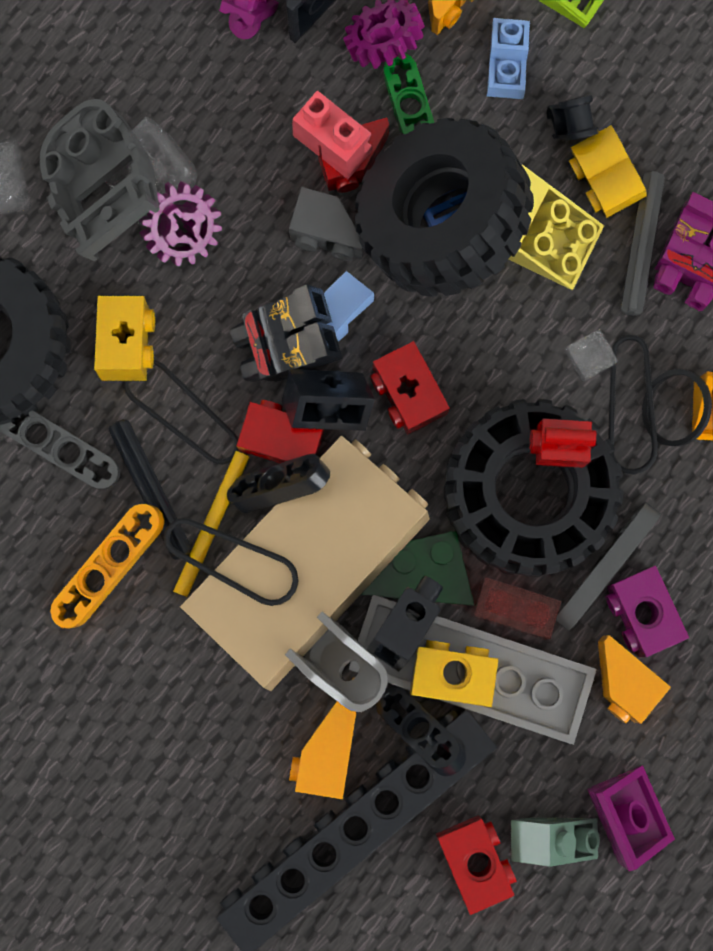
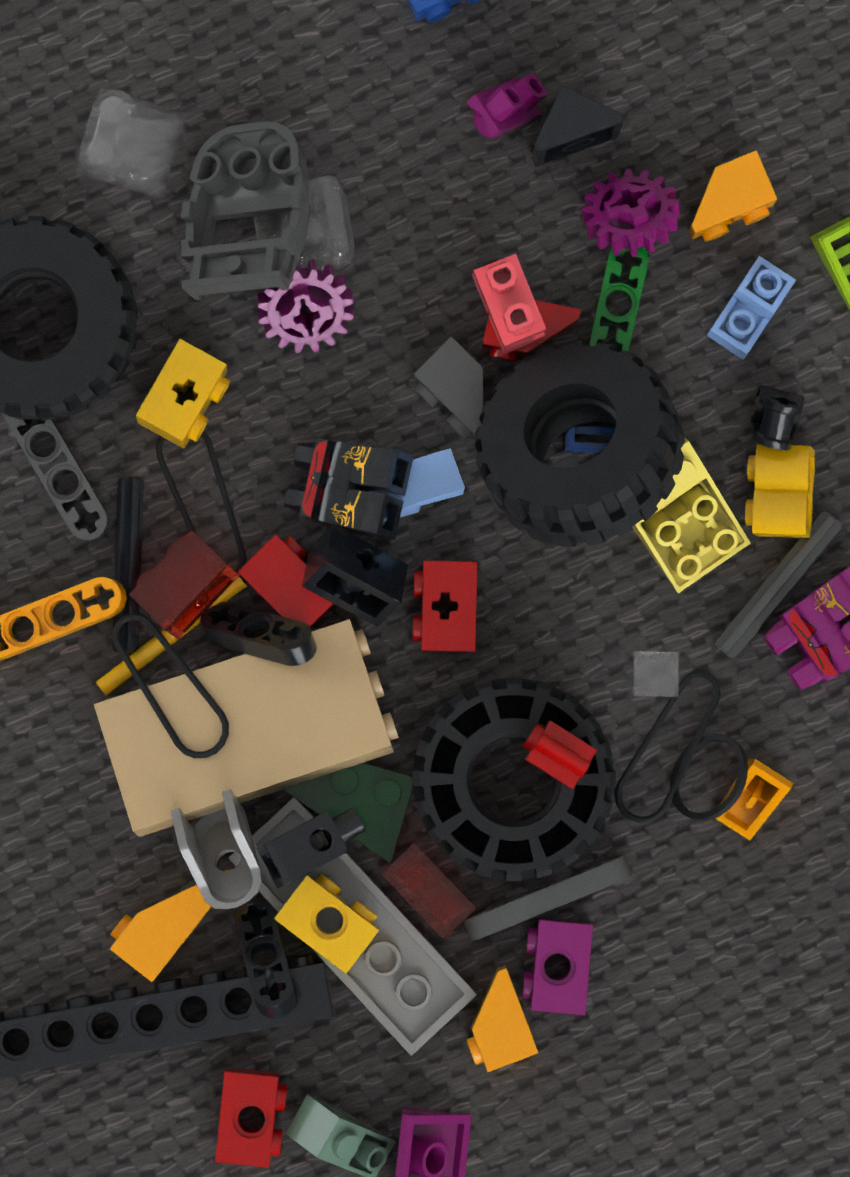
camera: 30 degrees right, 5 degrees up
(200, 478) = (183, 584): none -> clear red brick

